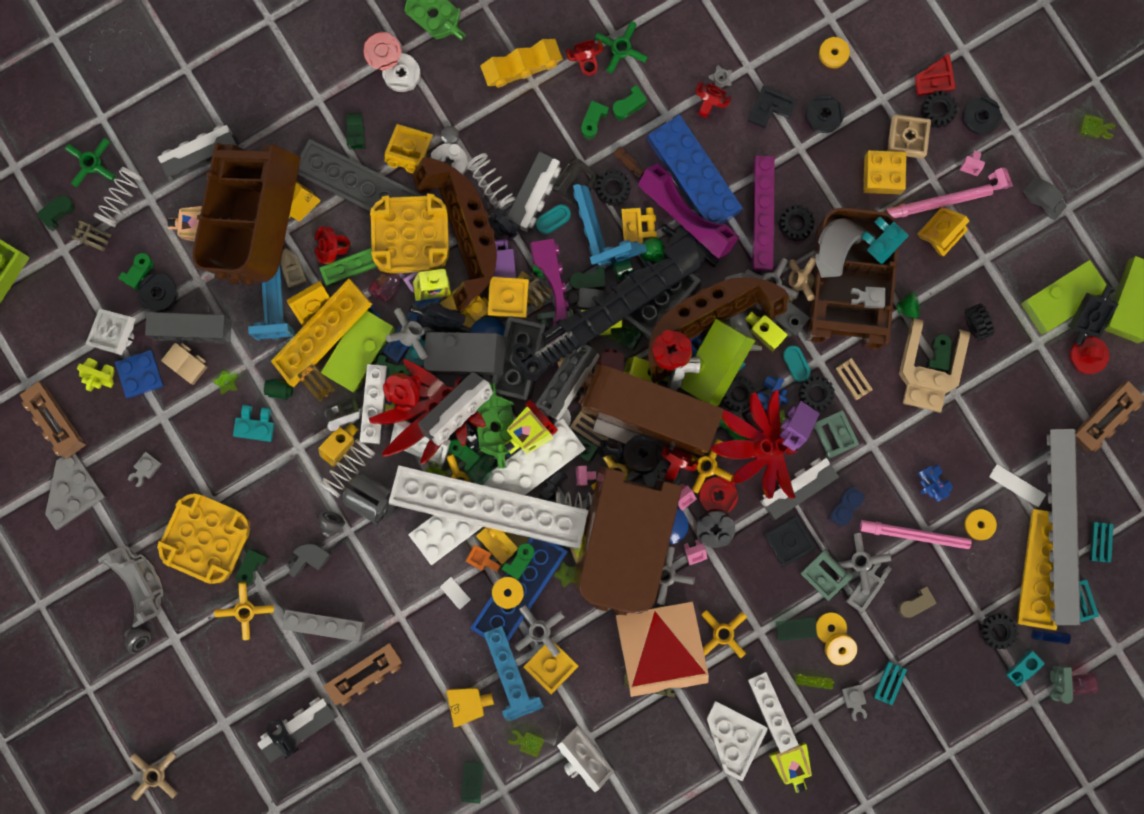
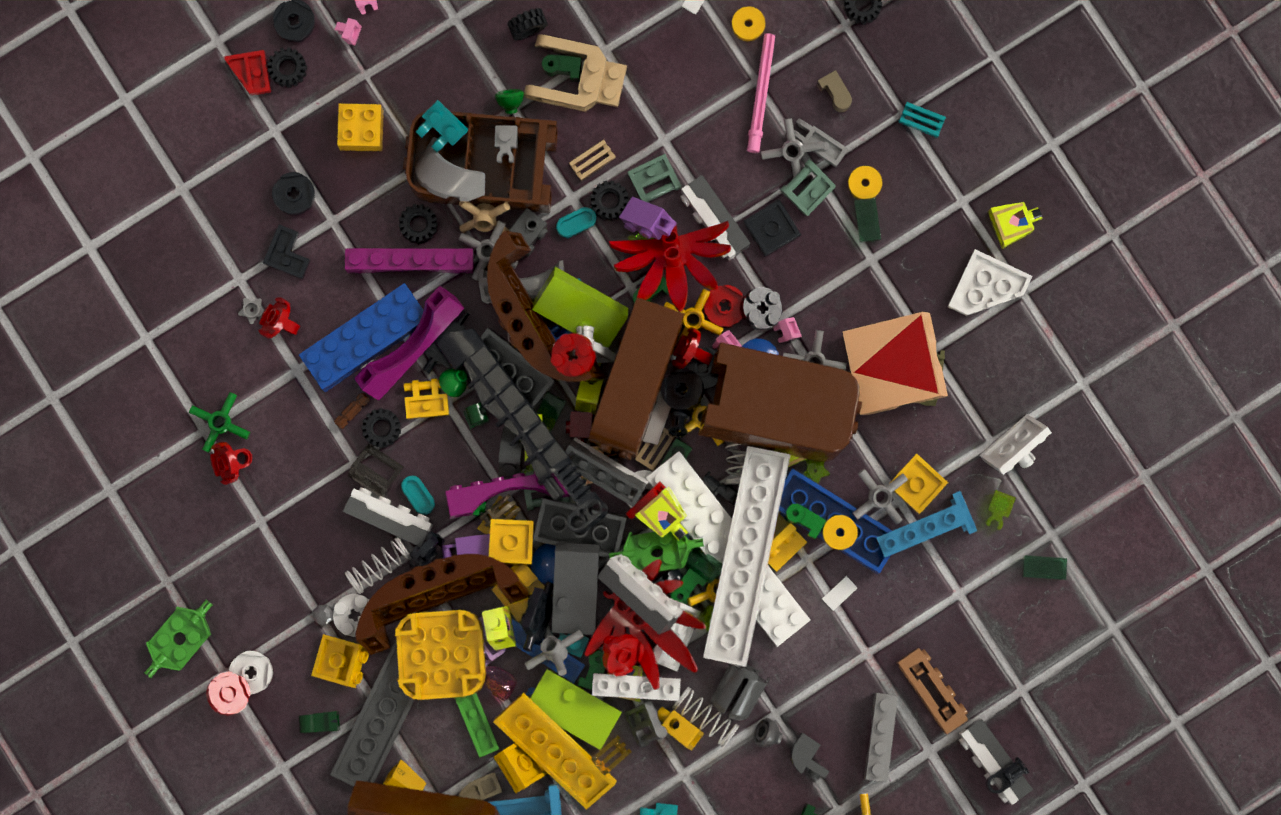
camera: 90 degrees left, 0 degrees up
(278, 389) = (618, 799): dark green brick -> none
(328, 245) = (453, 748): red tile -> none
(467, 704) = (961, 575): yellow torso -> none
(480, 558) = (801, 565): orange plate -> none
(521, 63) = (239, 534): yellow brick -> none
(582, 475) = (707, 454): bright pink tile -> none
(589, 126) = (313, 456): green leg -> none
(591, 281) = (490, 459): dark green leg -> none
(592, 230) = (433, 449): dark azure bracket -> none
(631, 104) = (288, 414): green leg -> none
(729, 640) = (874, 290): yellow bar -> none
(745, 403) = (621, 277): black tyre -> none
(772, 384) = (602, 245): blue hips -> none
(772, 711) = (957, 245): white piece -> none
(773, 335) = (549, 248): neon yellow torso -> none
(812, 681) = (923, 200): clear neon green axle -> none
(840, 47) = (227, 192): yellow piece -> none
(840, 657) = (879, 174): yellow piece -> none
(848, 502) = (729, 165): dark blue brick -> none
(854, 699) = (940, 157): light grey plate -> none
(904, 210) = (401, 105): bright pink axle -> none
(917, 127) = (310, 90): tan brick -> none
(933, 484) = (706, 74): blue hips -> none
(944, 230) = (424, 62): yellow bracket -> none

